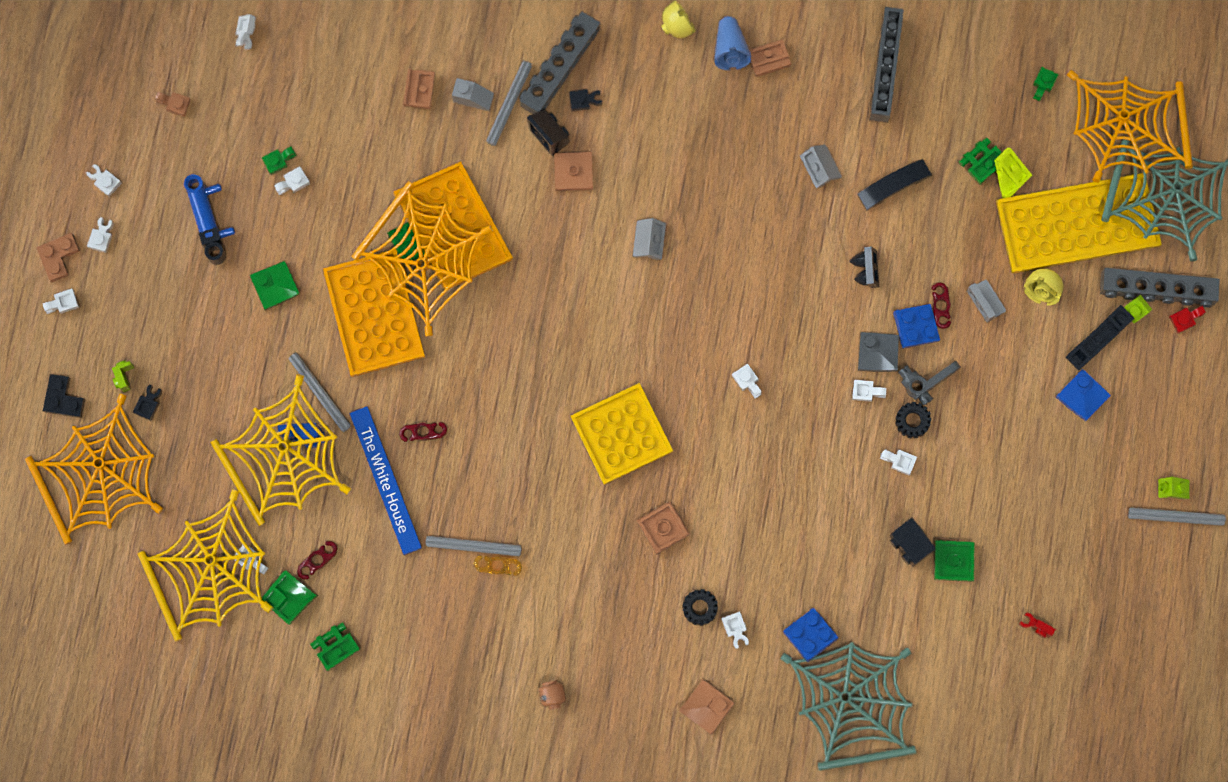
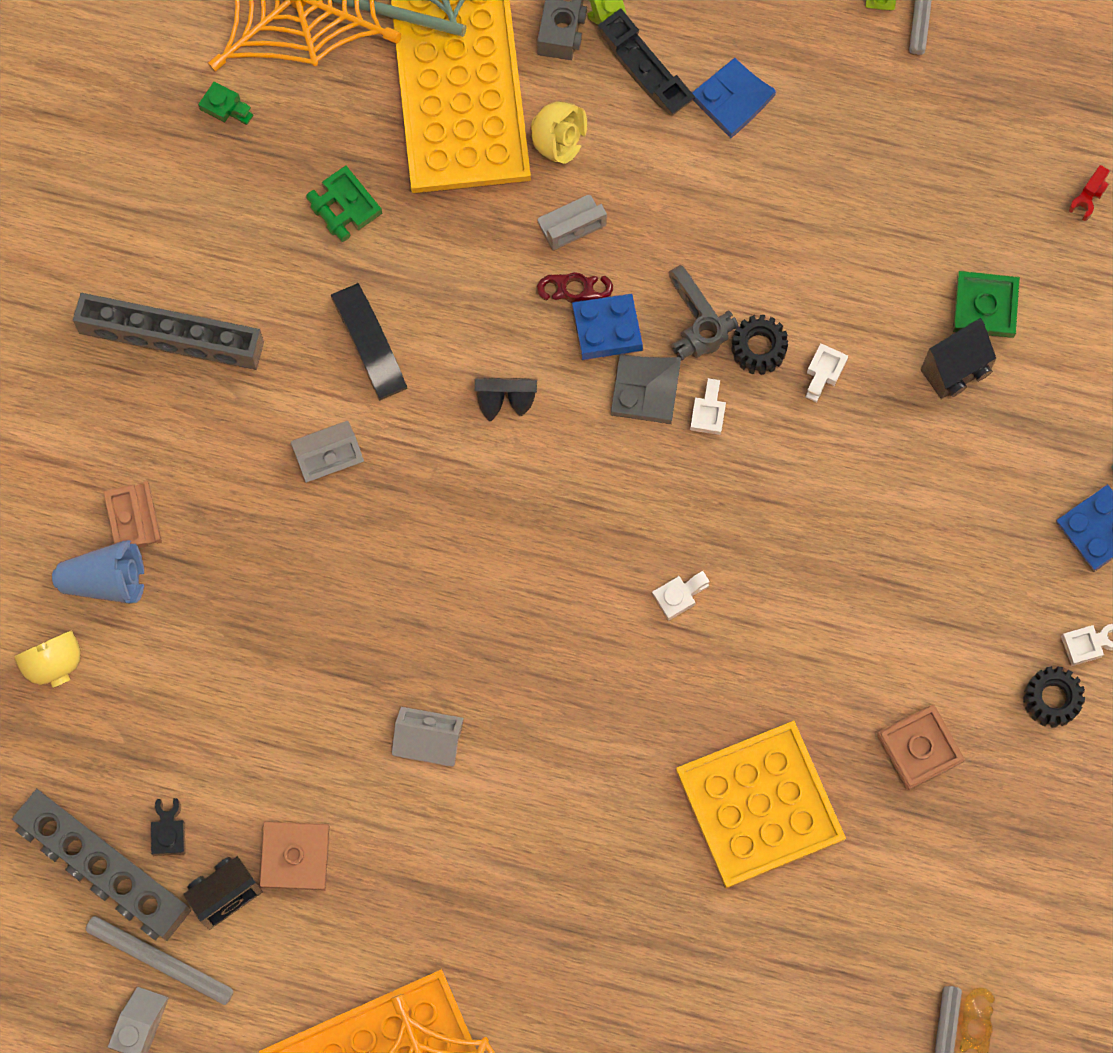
camera: 90 degrees left, 5 degrees down
(1010, 172) = (370, 163): neon yellow wing -> none

